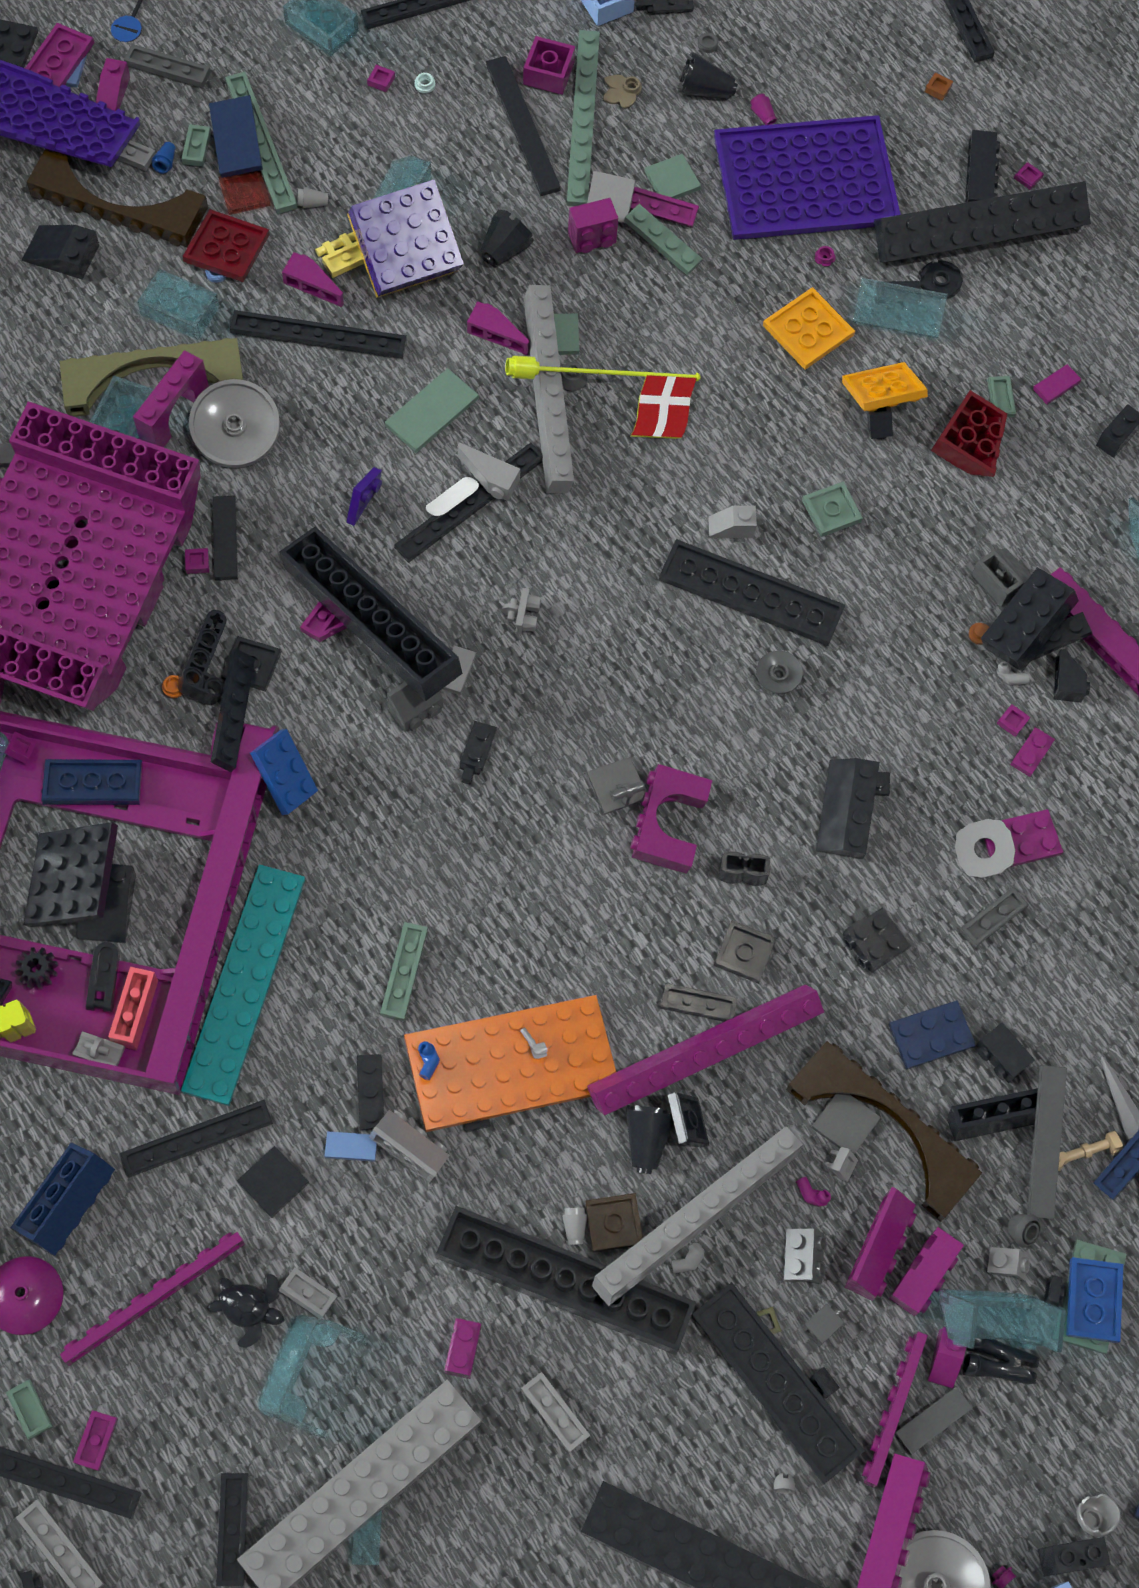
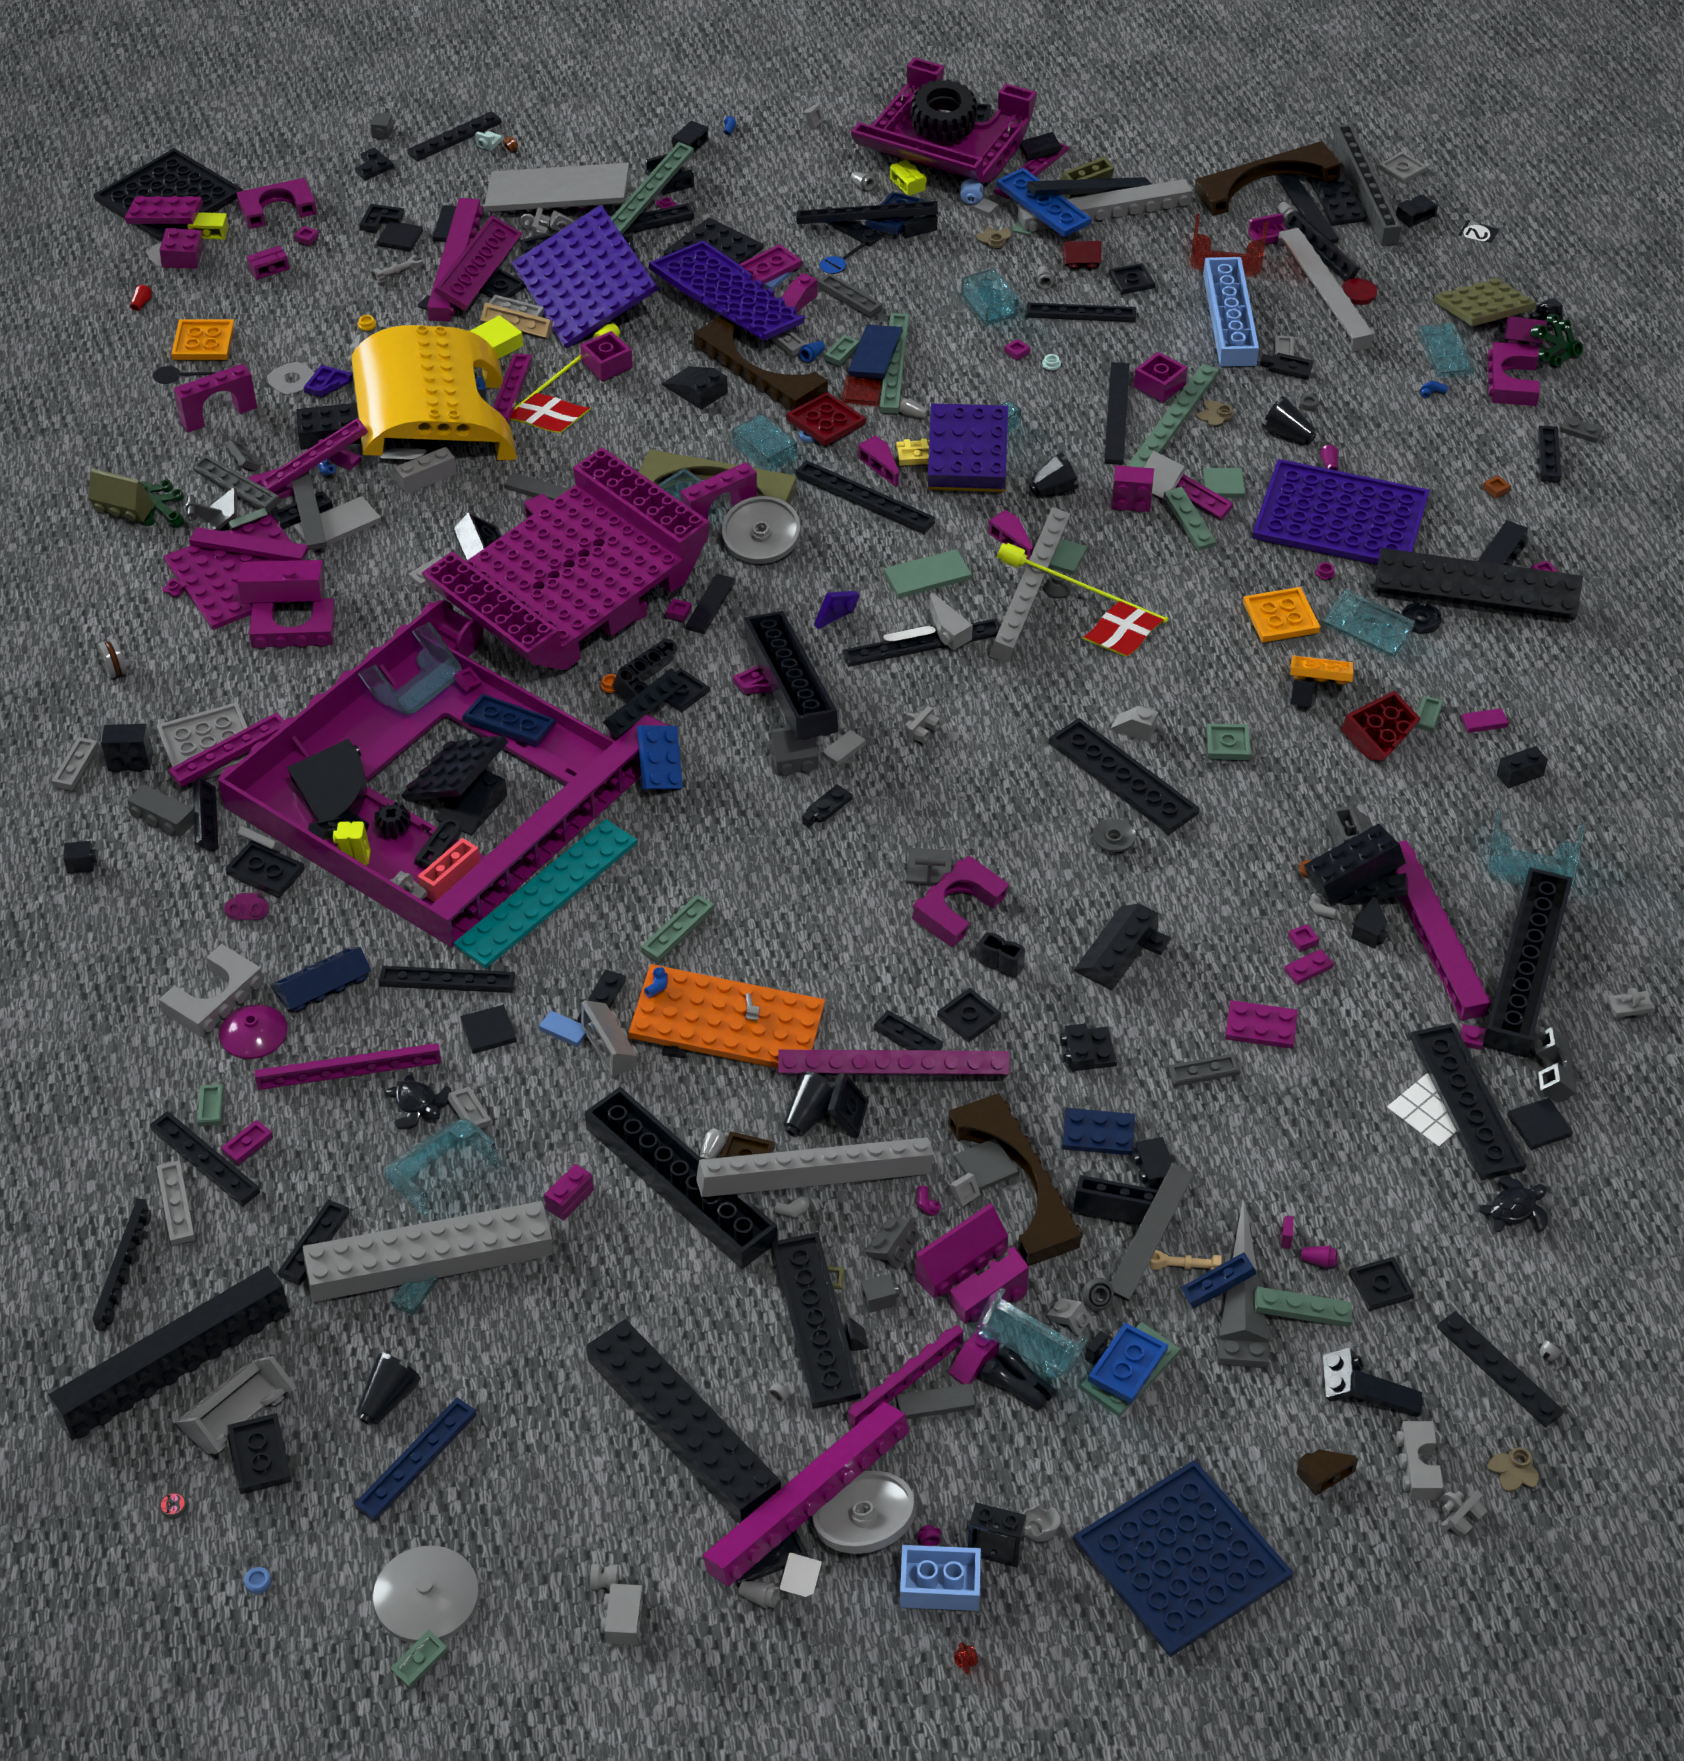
camera: 30 degrees right, 20 degrees down
(555, 1412) = (617, 1267): light grey plate -> none
(998, 862) = (1205, 1019): light grey piece -> none

